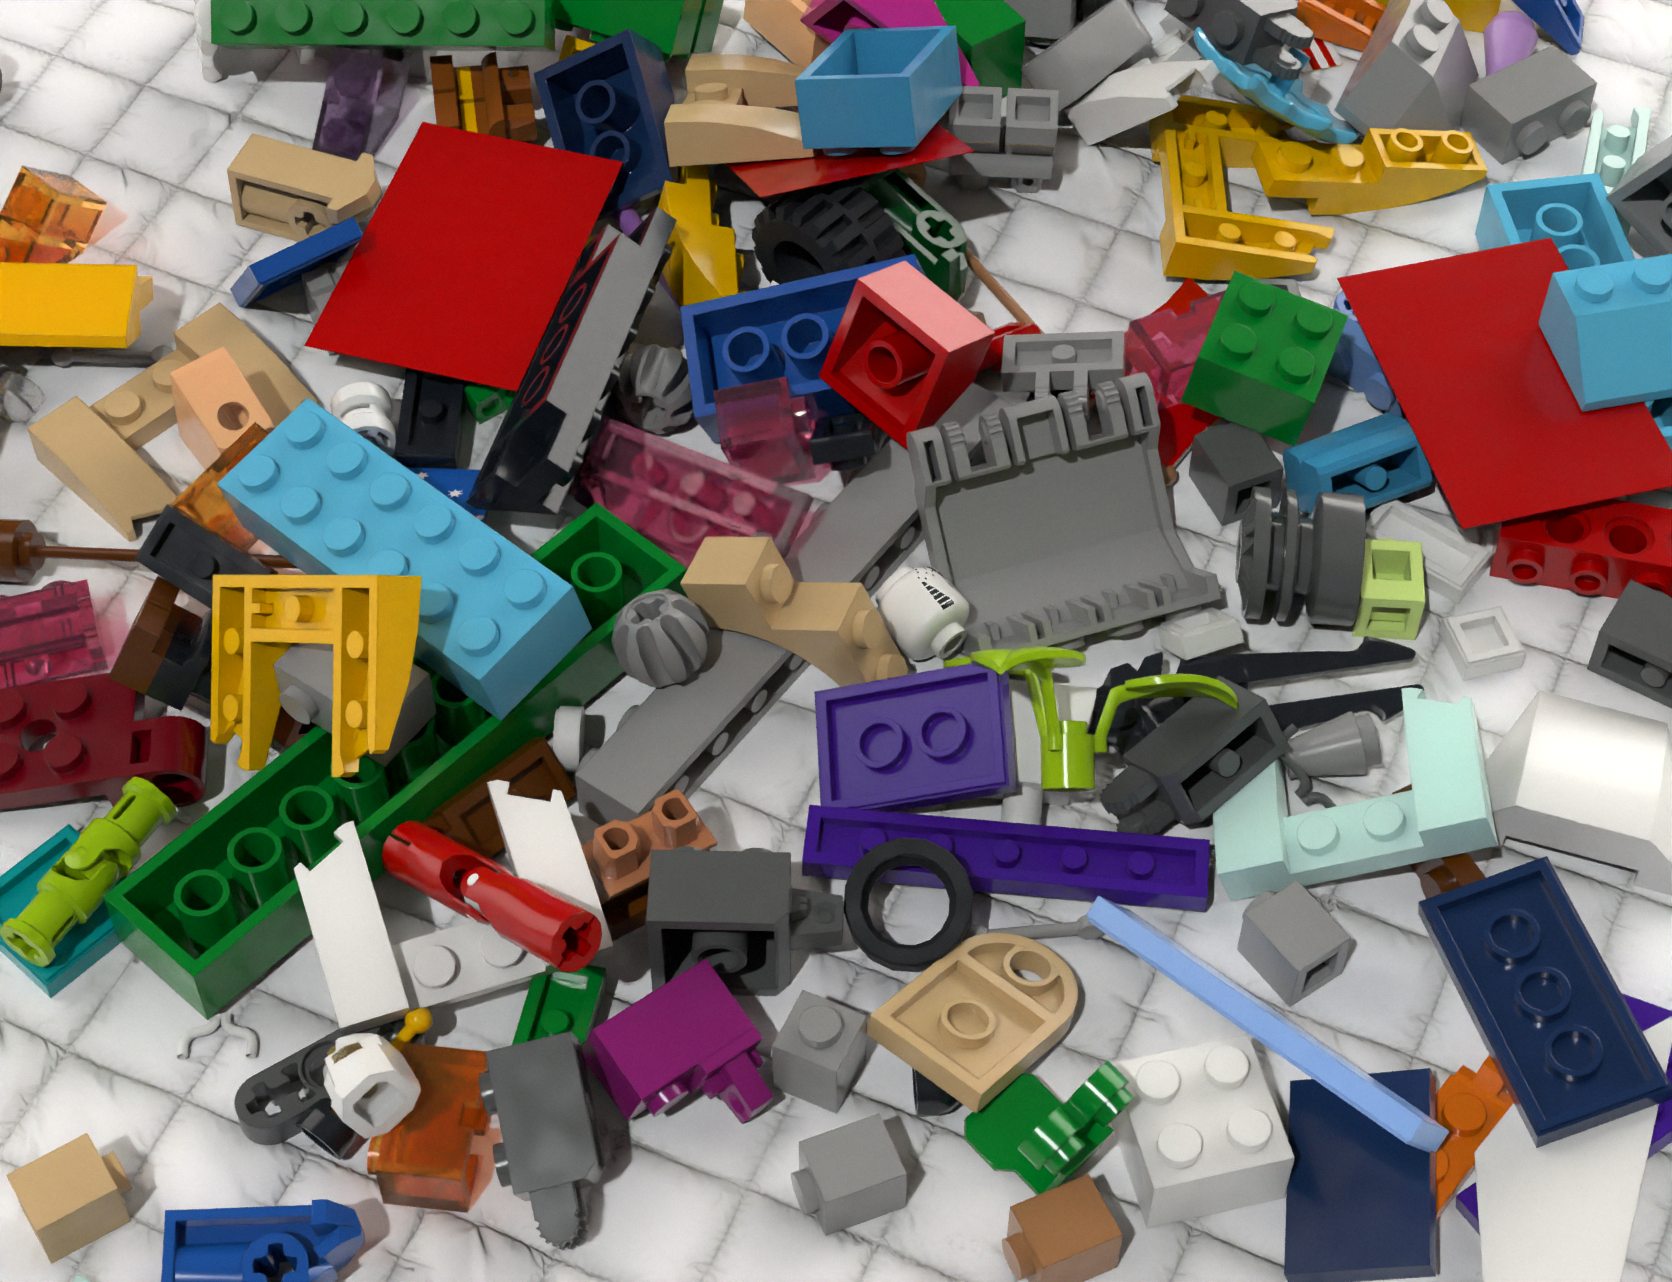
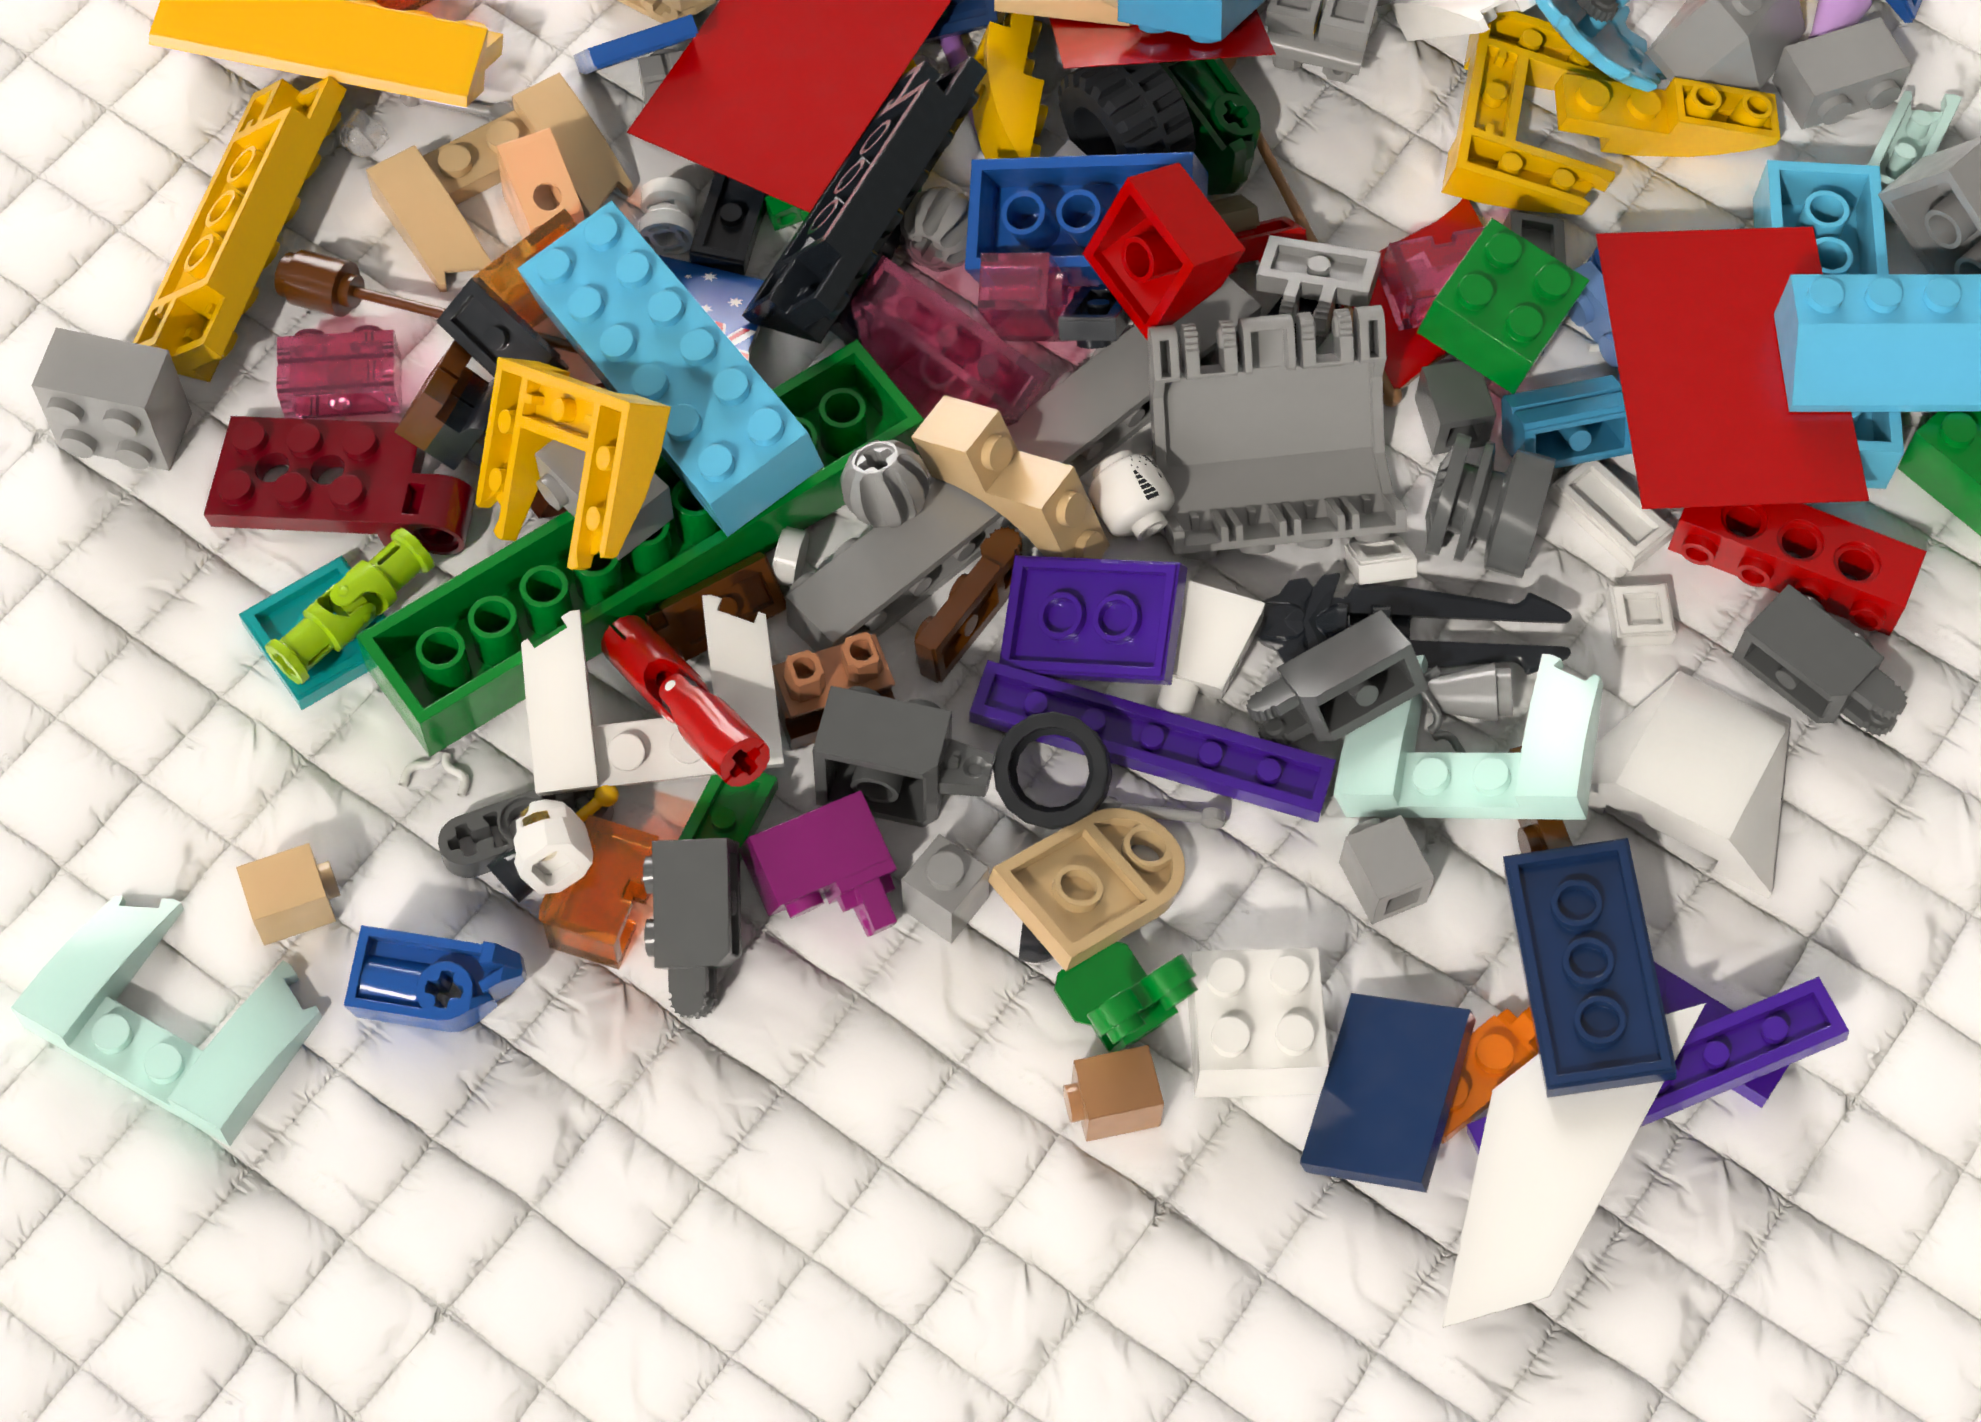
camera: 10 degrees right, 10 degrees up
(775, 755) = (970, 606): none -> reddish brown hinge
(850, 1175) = (946, 1003): light grey brick -> none
(1064, 745) = (1221, 654): lime plant -> none
(1268, 1026) = (1337, 943): light blue tile -> none
(1391, 590) = (1564, 548): yellowish green brick -> none

